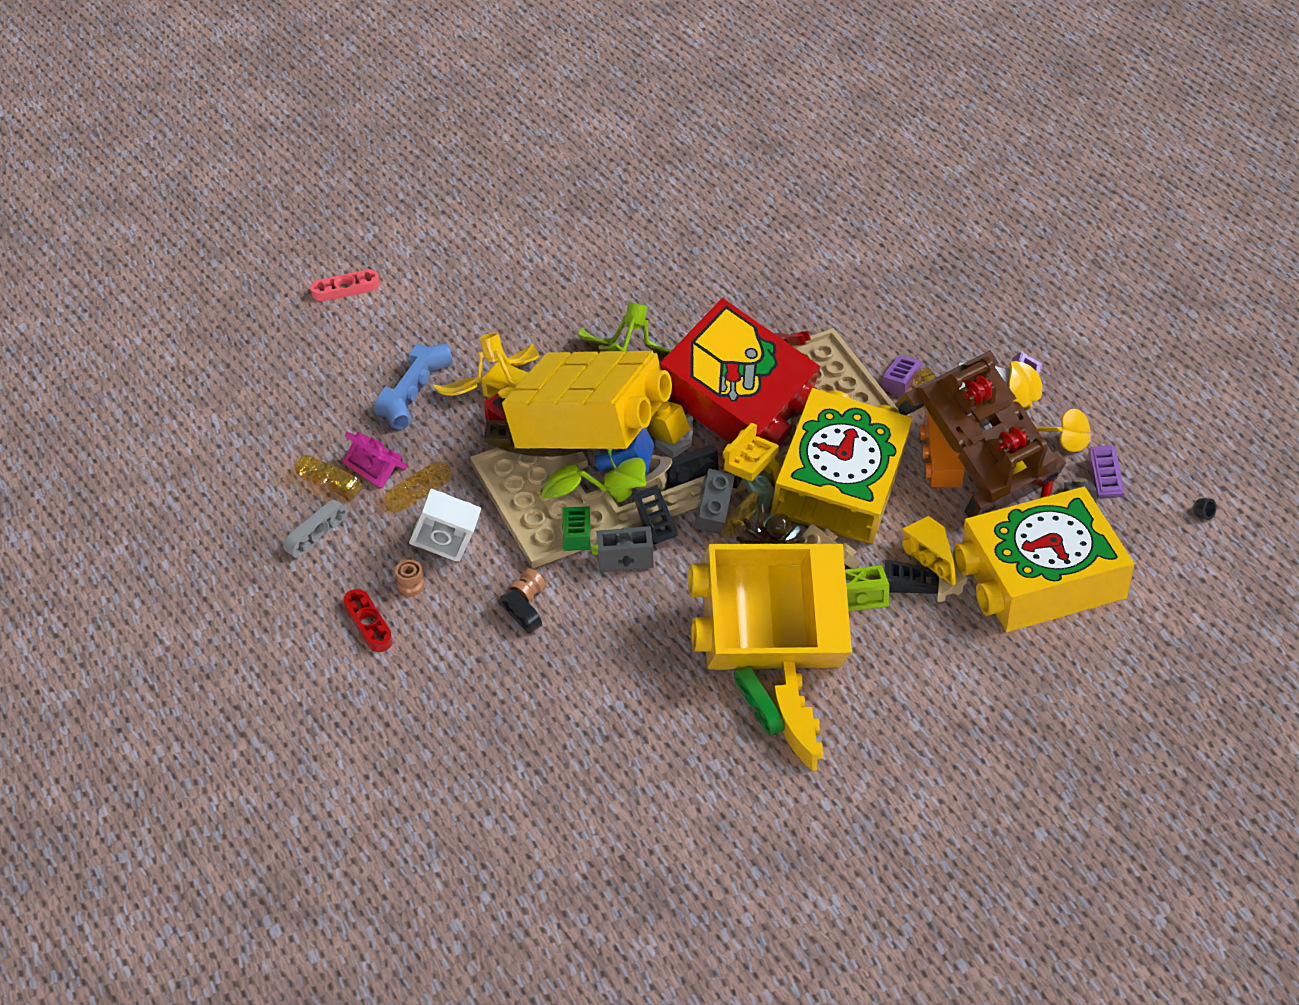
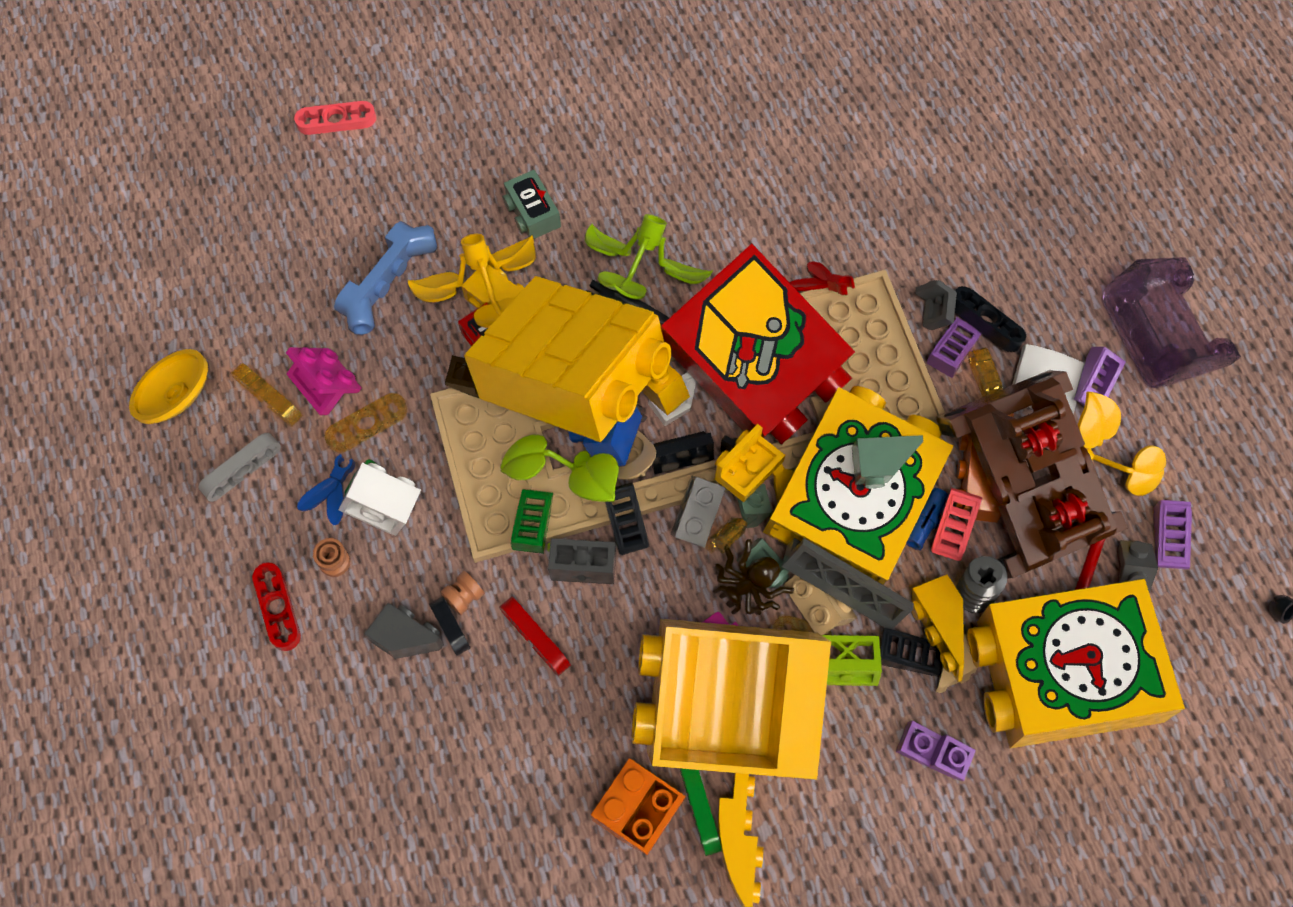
camera: 10 degrees right, 20 degrees up
(244, 479) = (169, 387): none -> yellow dish
(395, 536) = (329, 489): none -> blue piece
(482, 621) = (402, 636): none -> dark grey slope
(528, 321) = (531, 204): none -> sand green brick
(596, 607) = (531, 631): none -> red beam
(705, 704) = (637, 807): none -> orange slope
(844, 531) = (845, 583): none -> dark grey fence
(857, 426) = (881, 458): none -> sand green slope
(881, 343) = (938, 305): none -> dark grey bracket
(904, 488) = (935, 502): none -> blue pin
(924, 351) = (1008, 338): none -> black beam
(927, 505) = (950, 543): none -> coral slope
(951, 642) = (936, 751): none -> medium lavender slope
(955, 508) = (982, 583): none -> dark grey piece
(1054, 331) = (1159, 325): none -> clear purple windscreen

